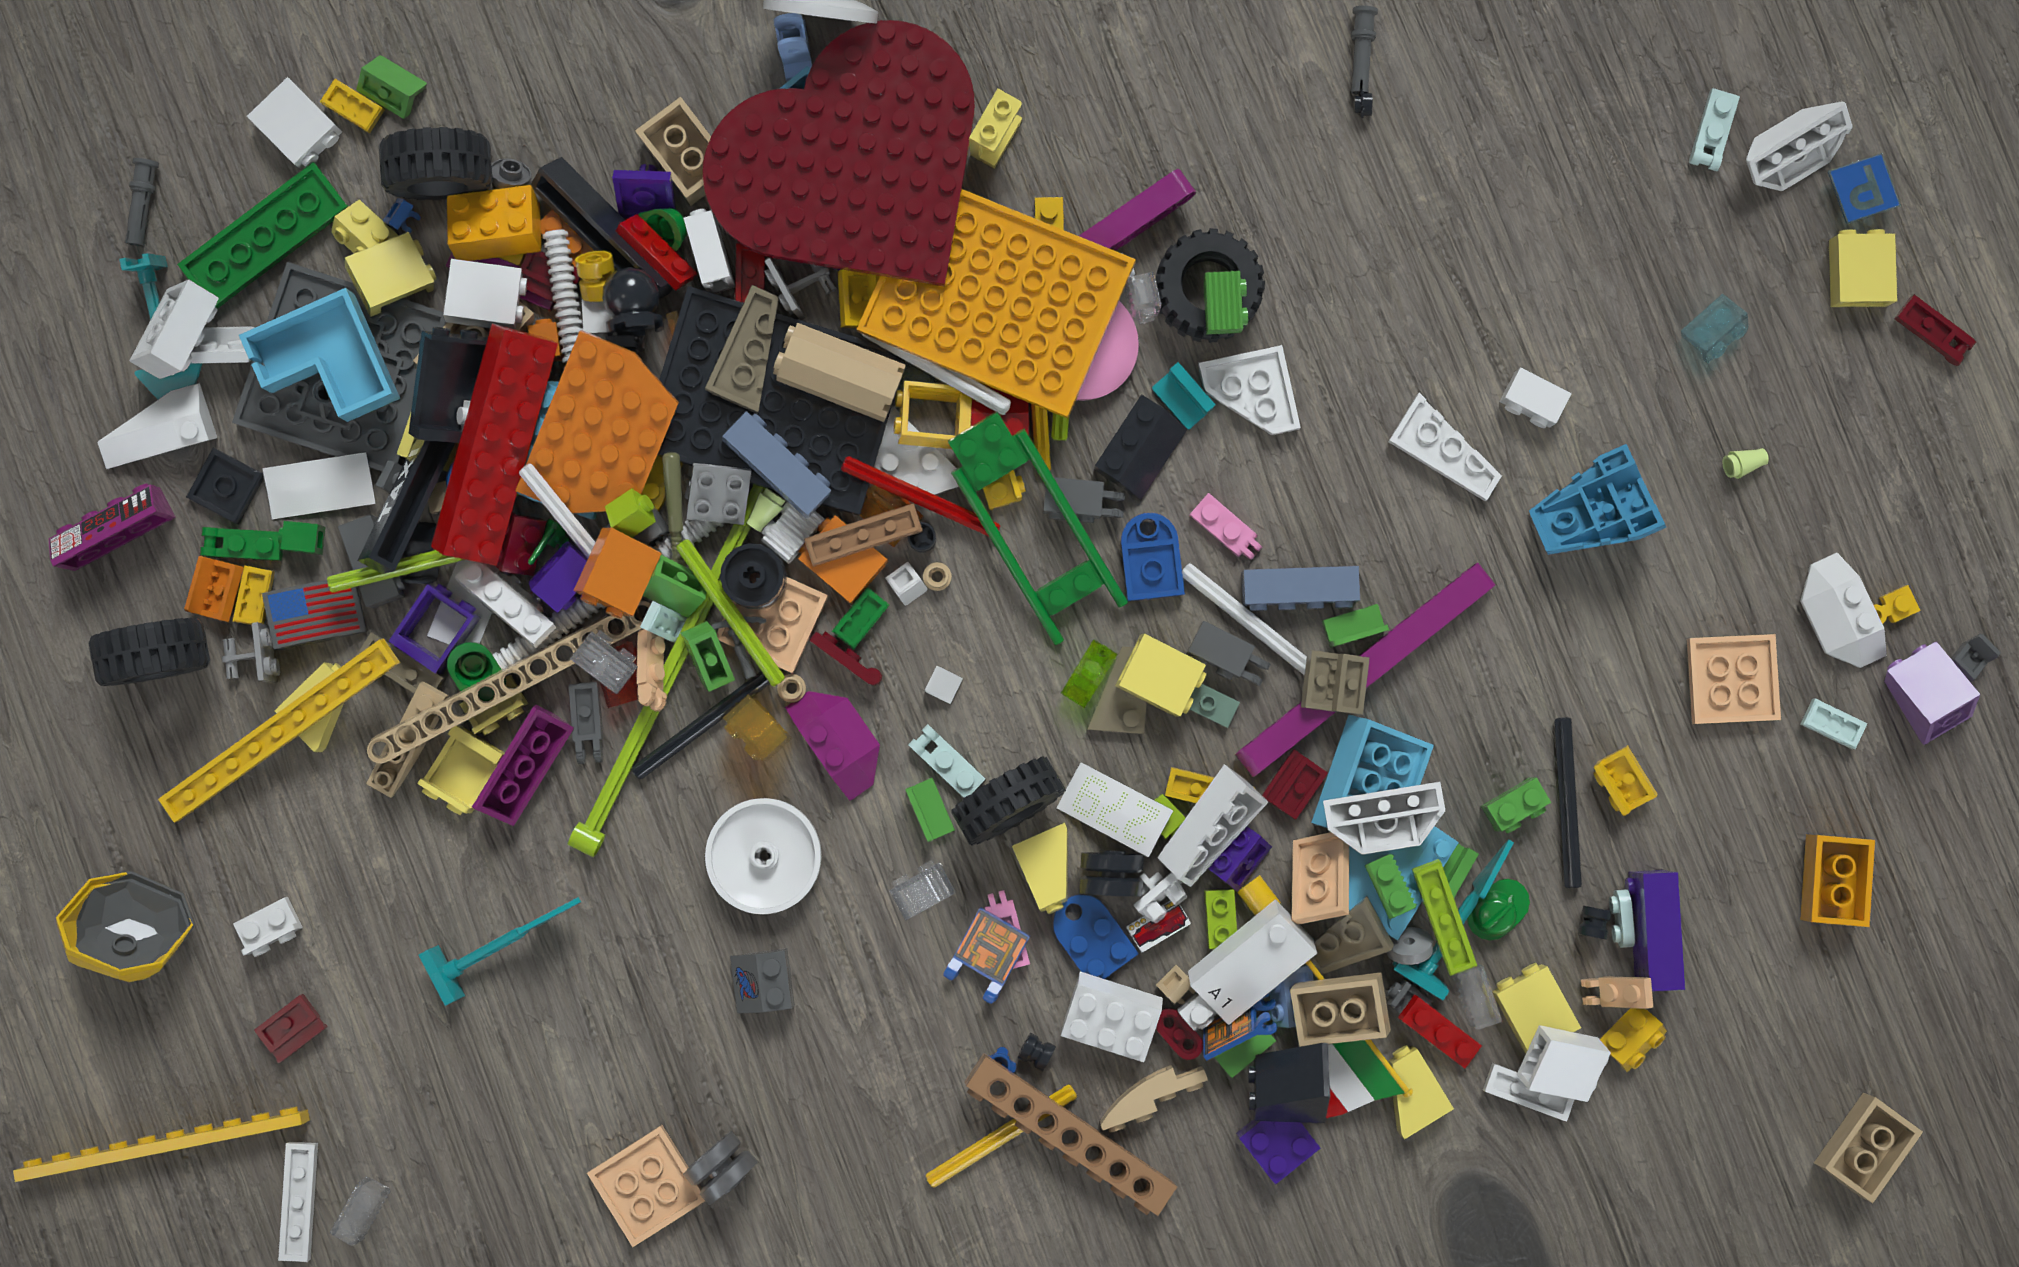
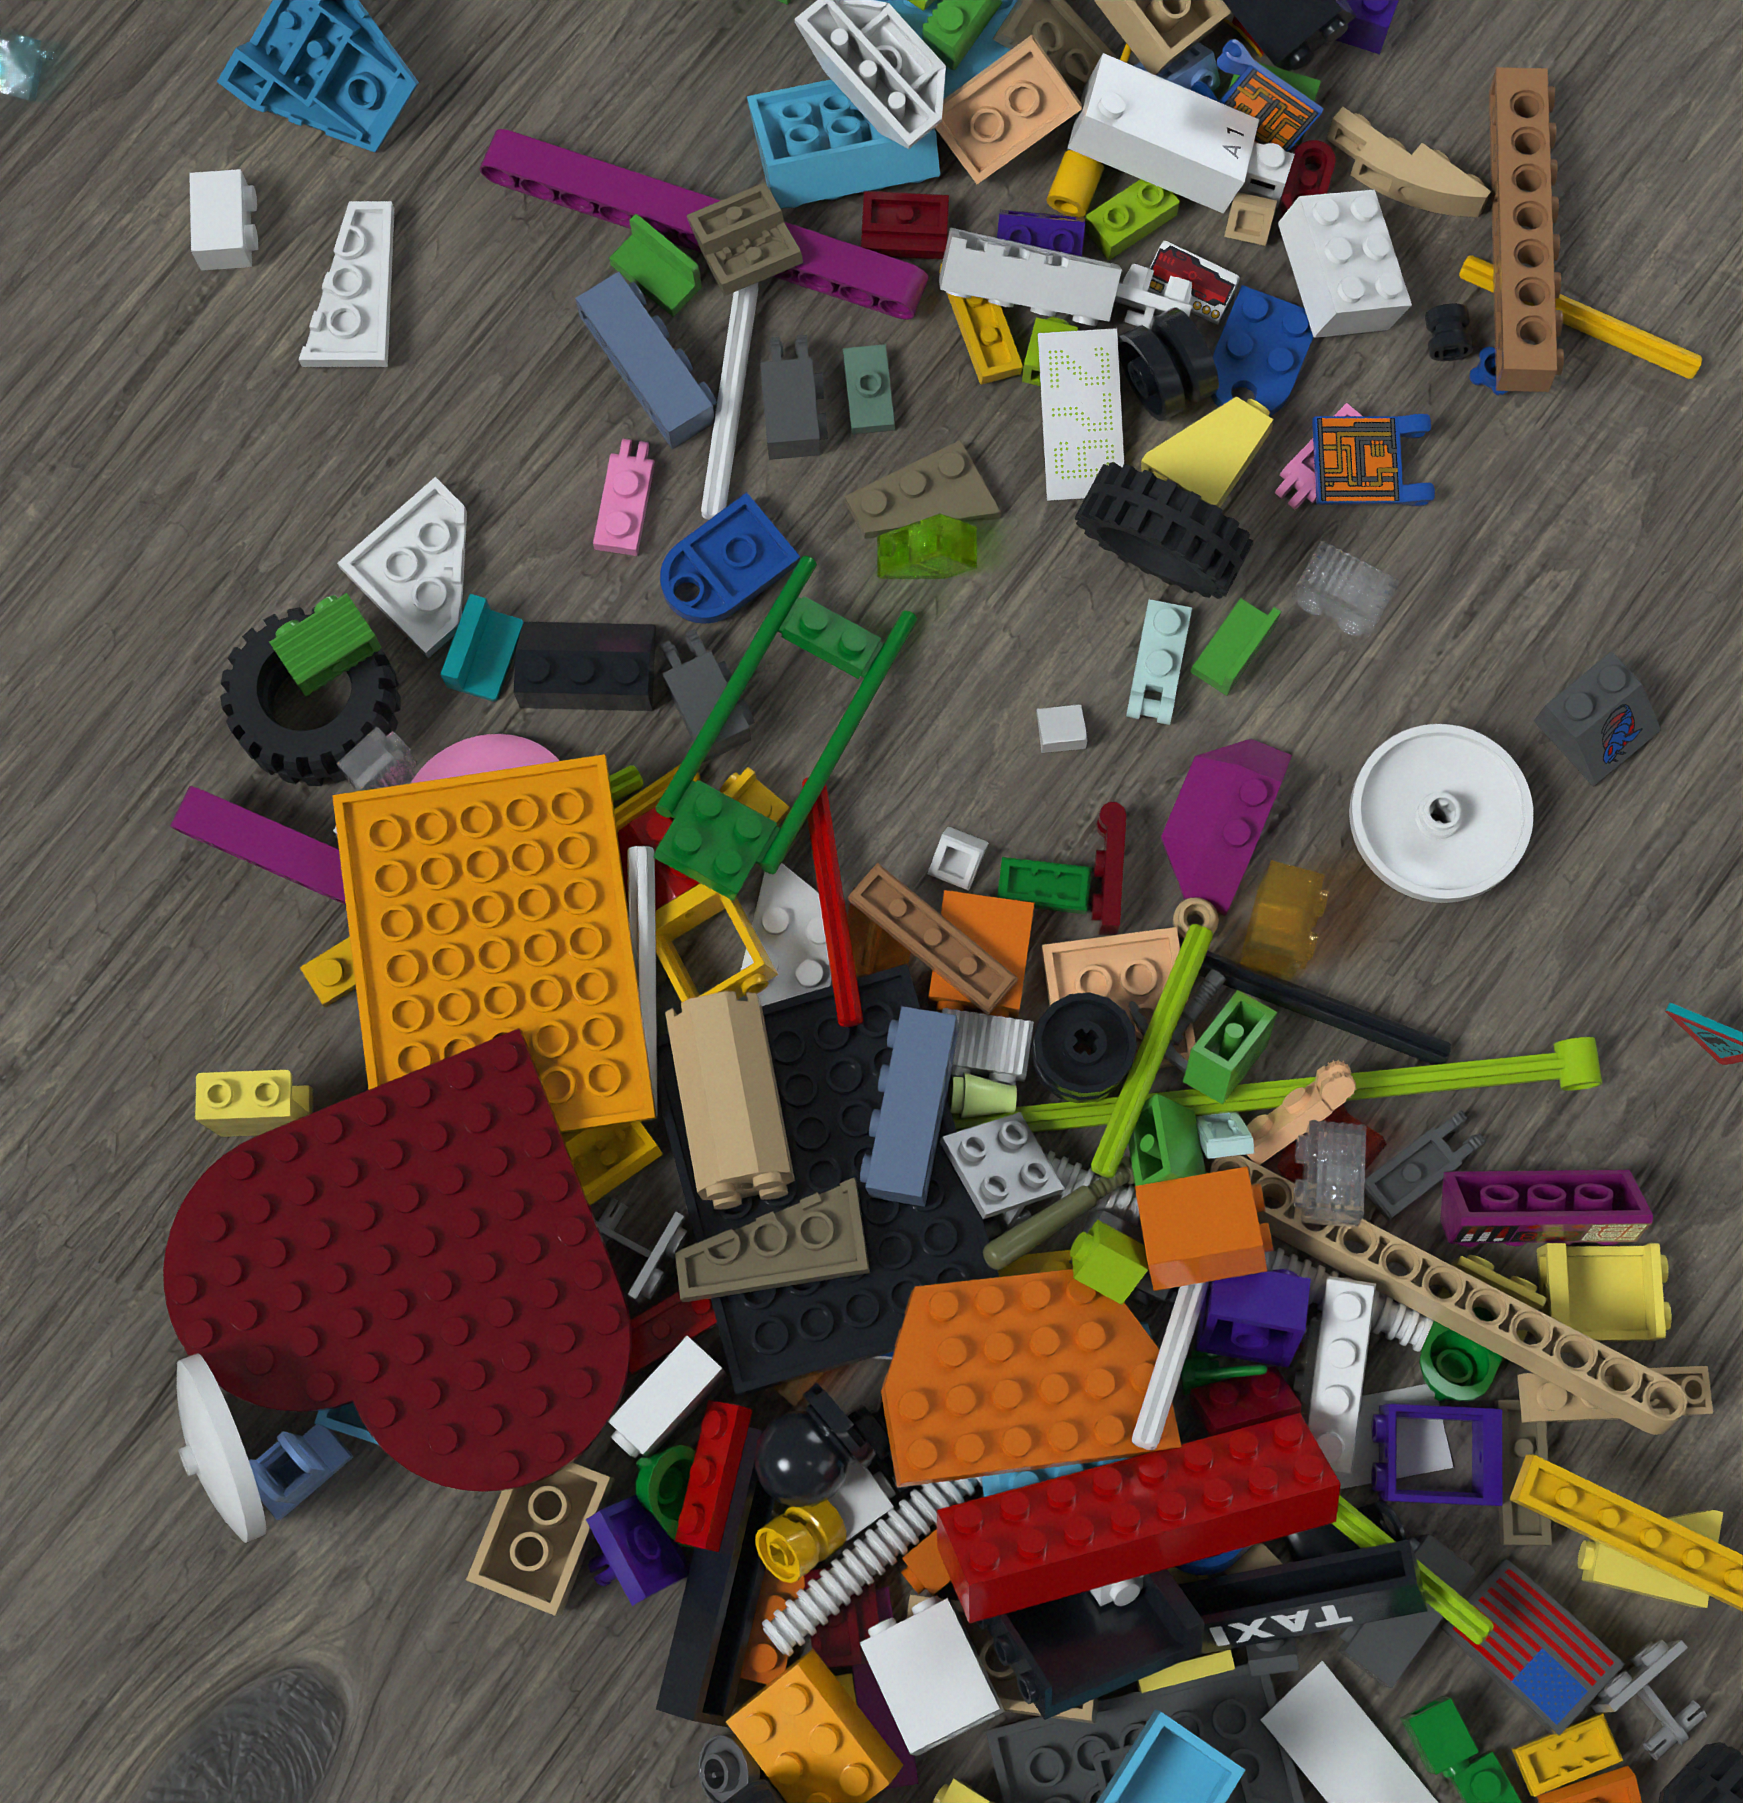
camera: 120 degrees left, 10 degrees down
(928, 536) = (889, 857): black wheel -> none
(937, 567) = (923, 808): tan plate -> none
(1161, 676) = (873, 453): light yellow brick -> none

